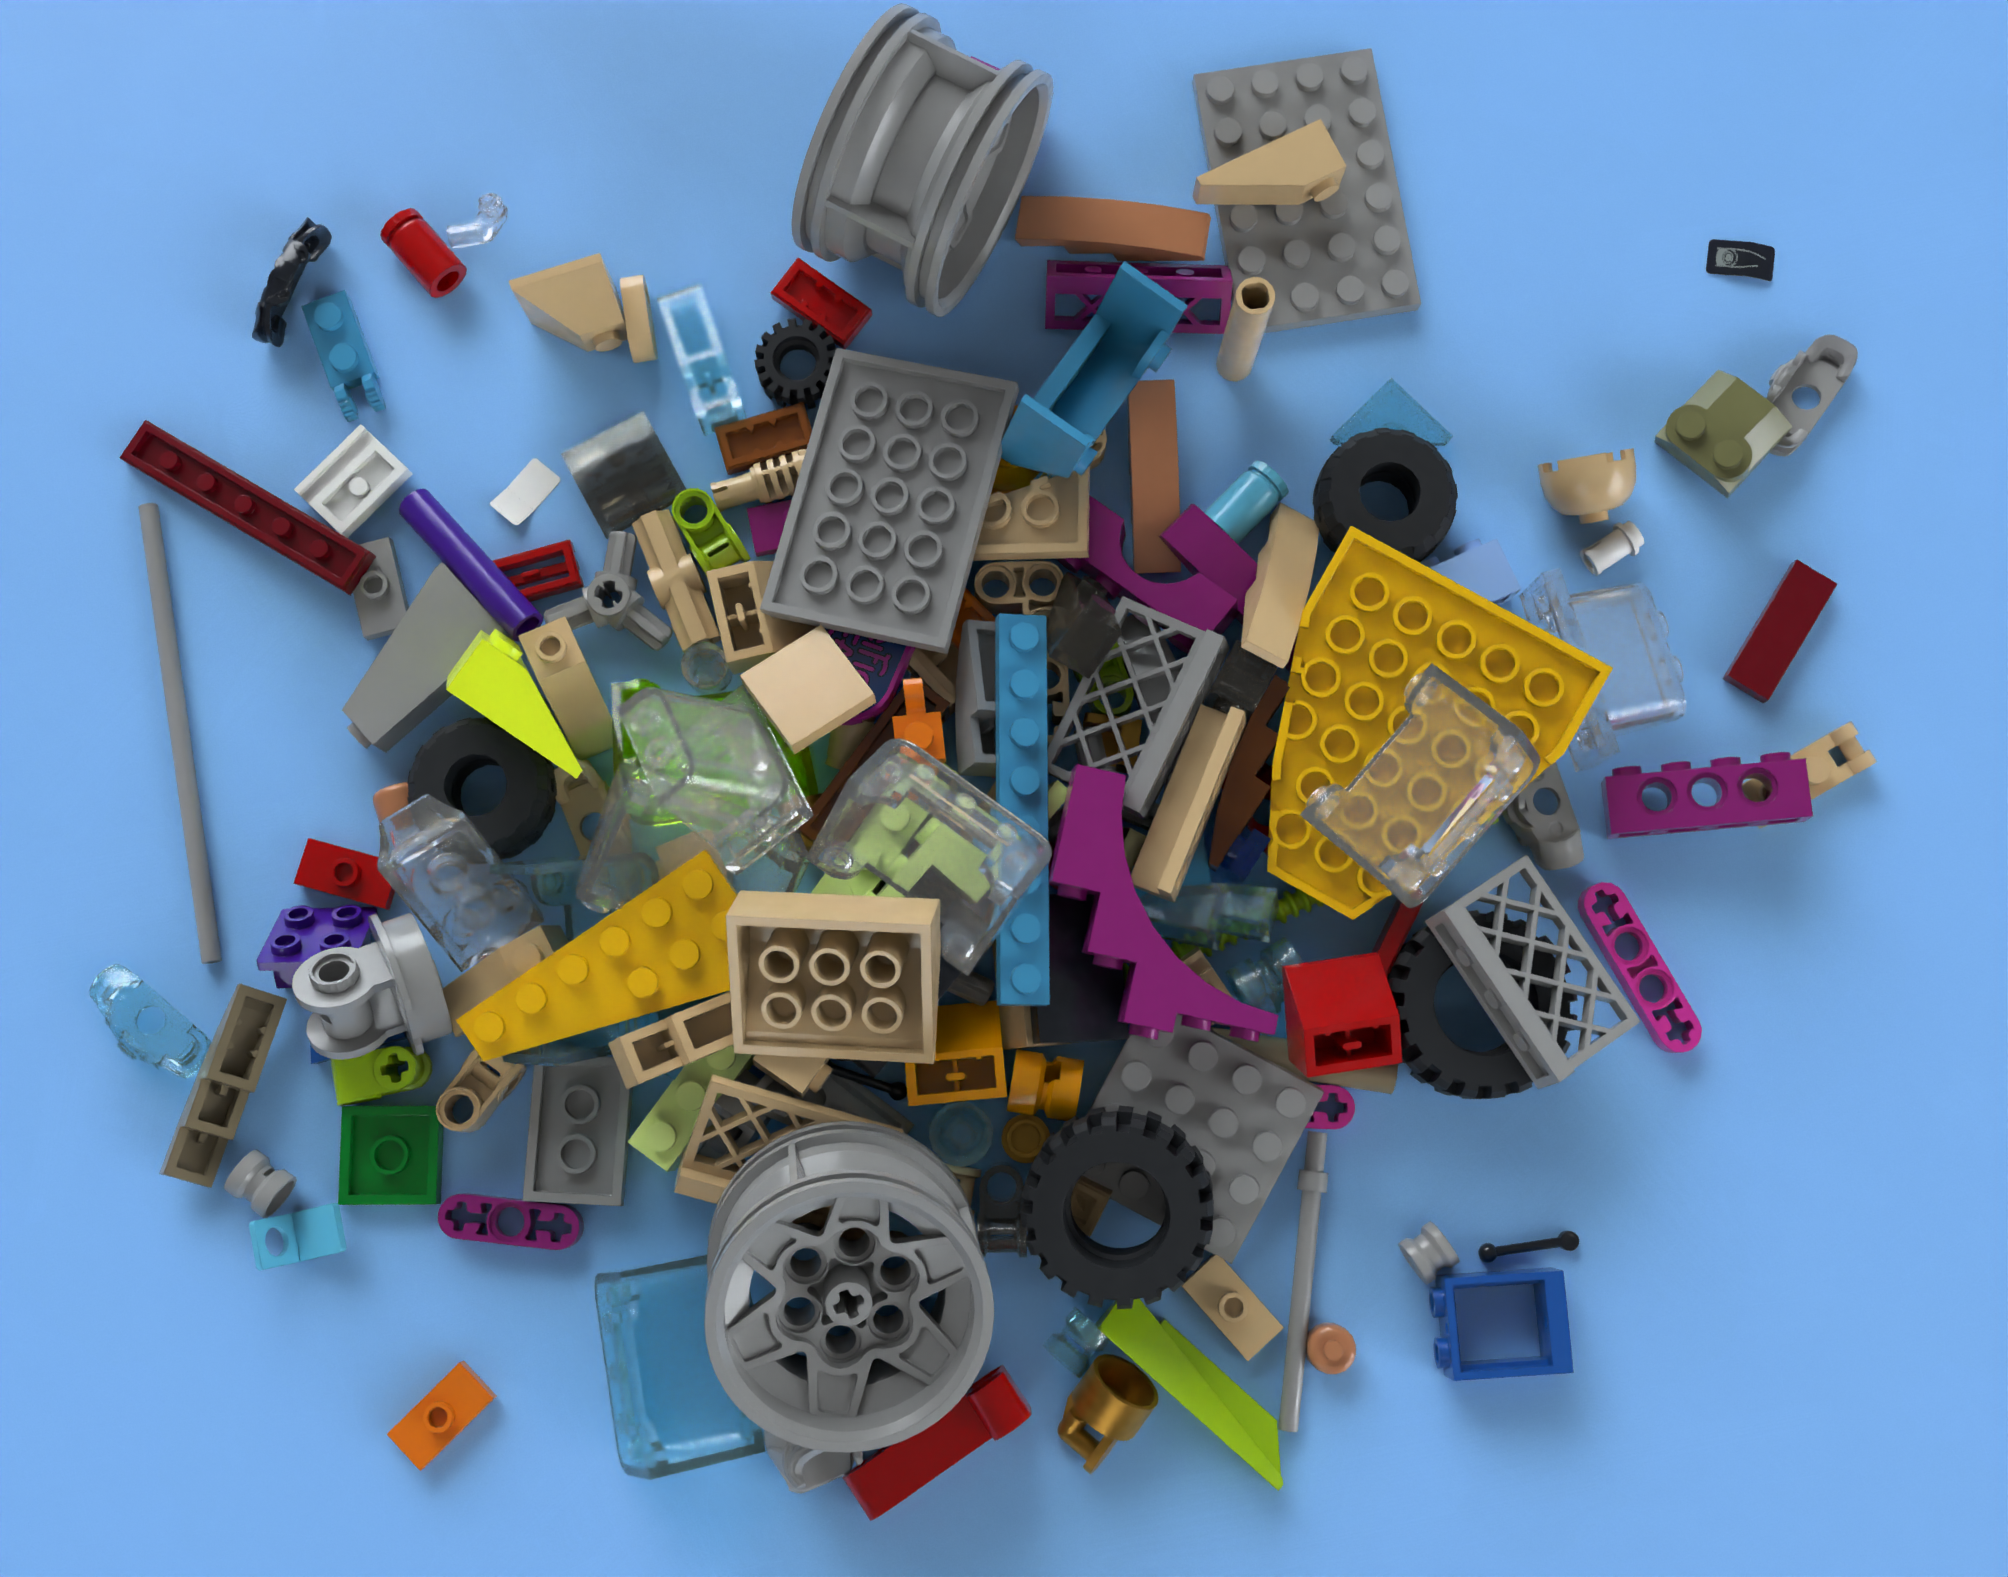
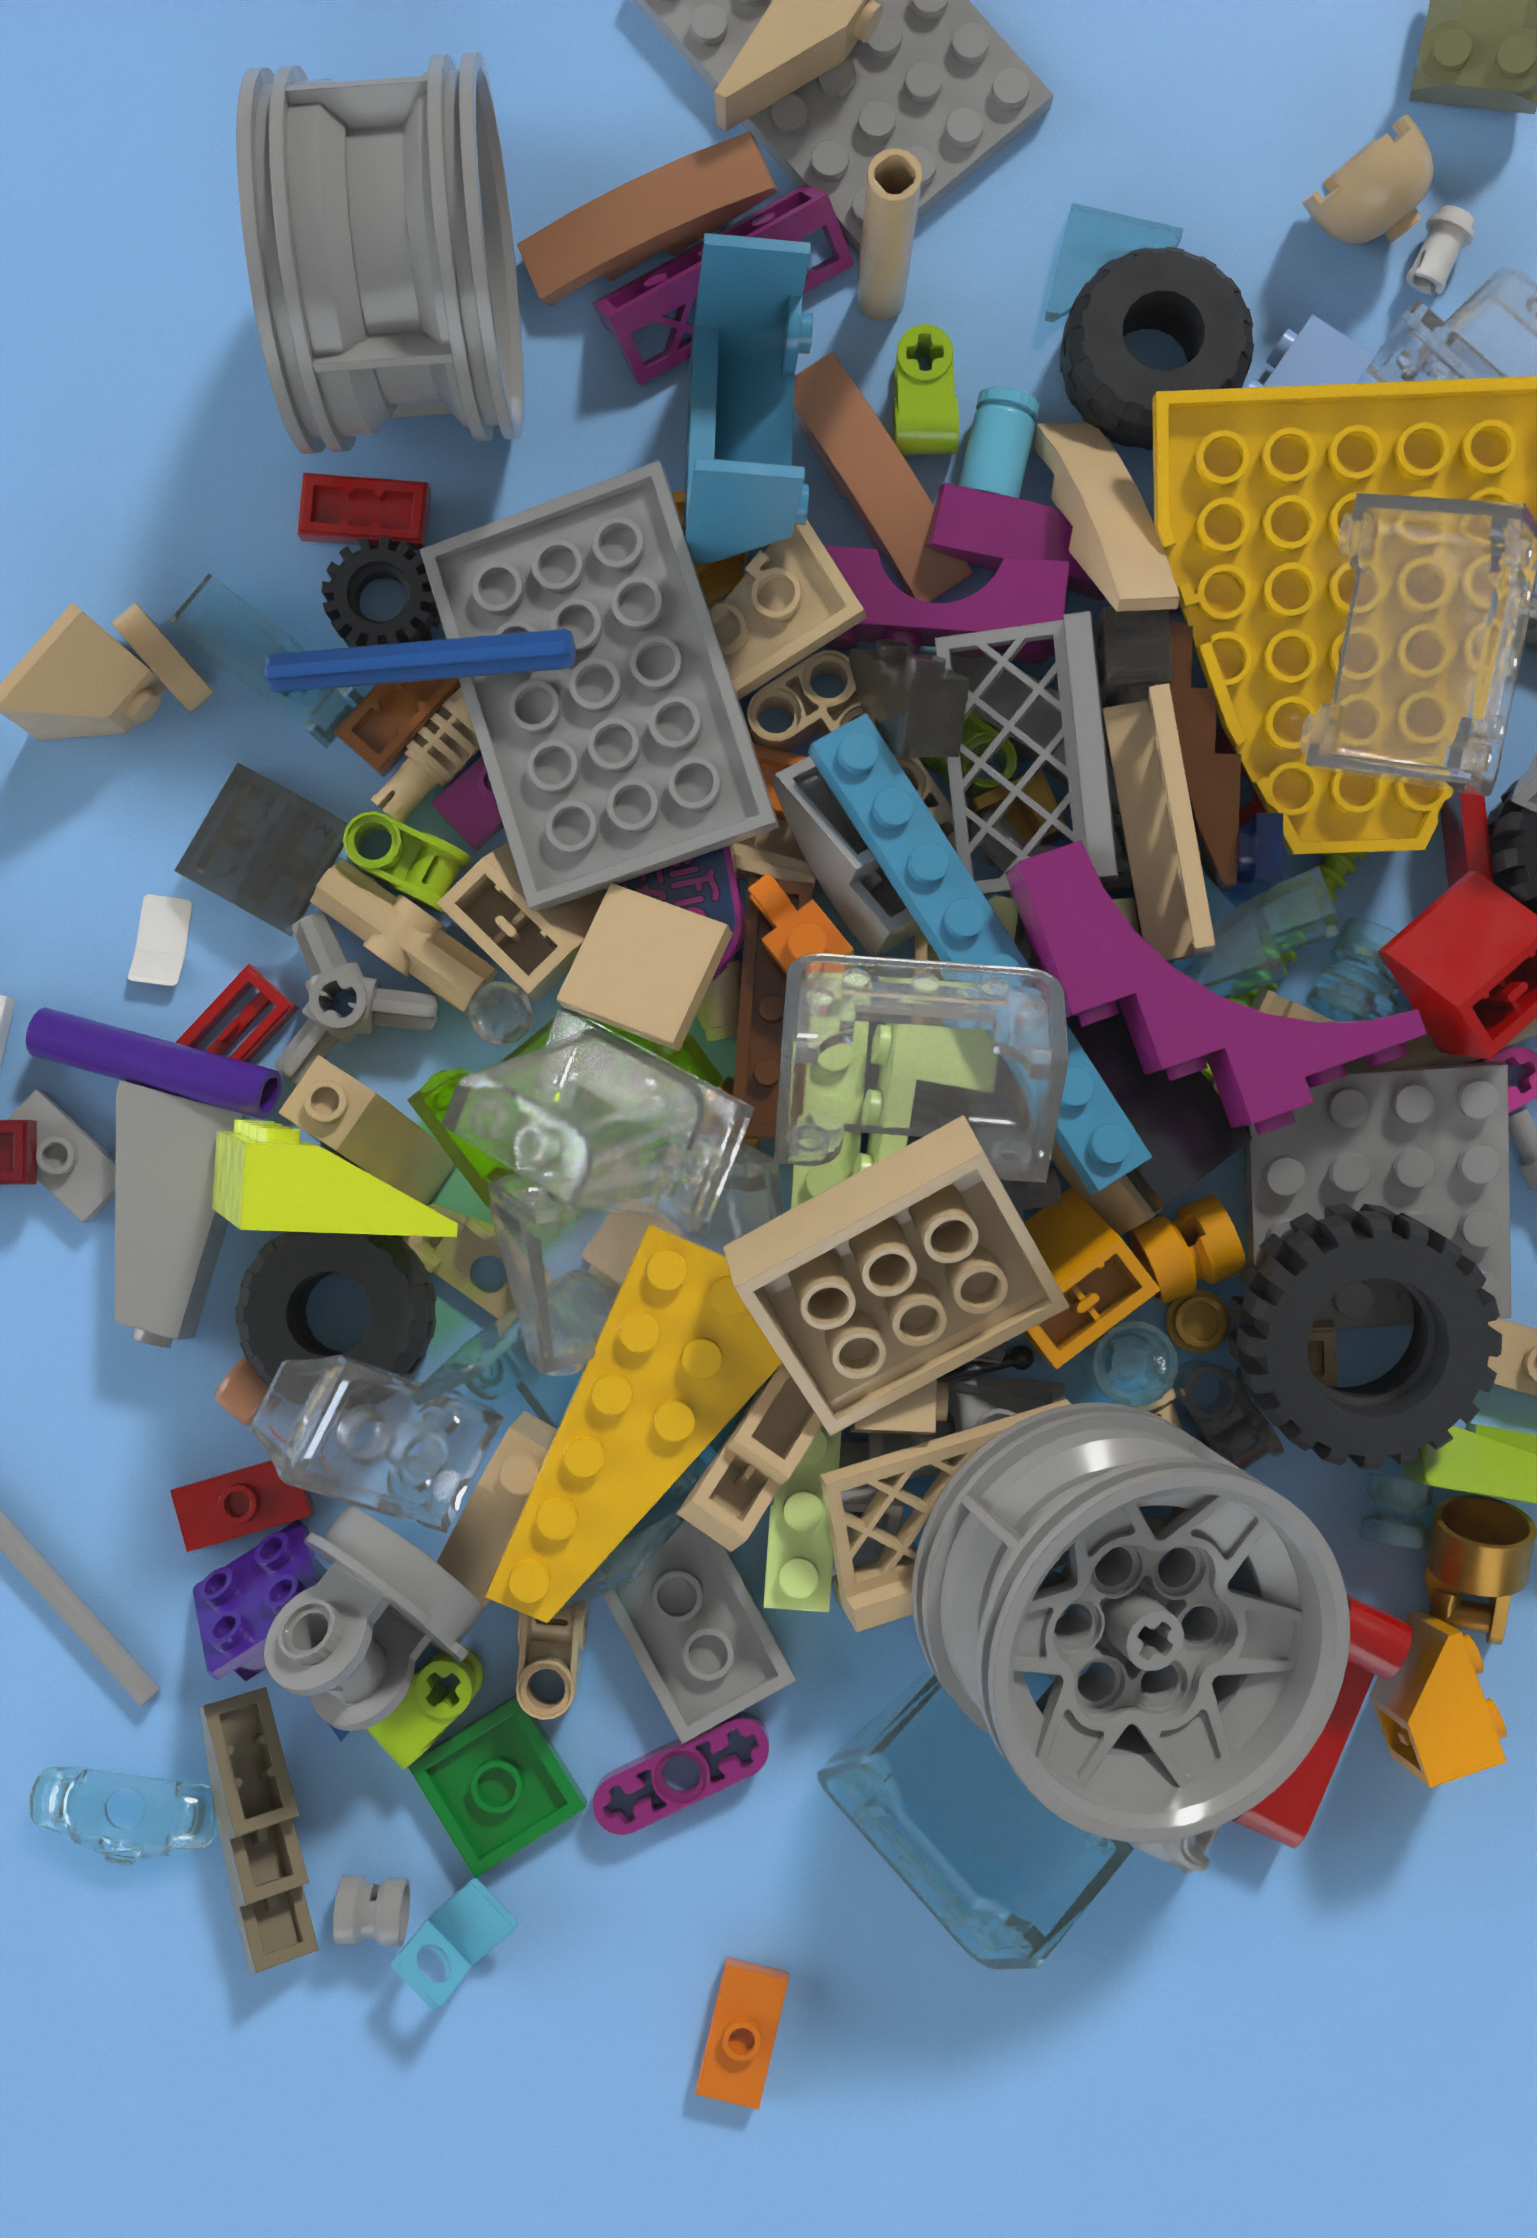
camera: 30 degrees left, 5 degrees up
(791, 416) = (421, 661): none -> blue axle
(1015, 1482) = (1436, 1708): none -> light orange slope
(1217, 447) = (925, 401): none -> lime piece

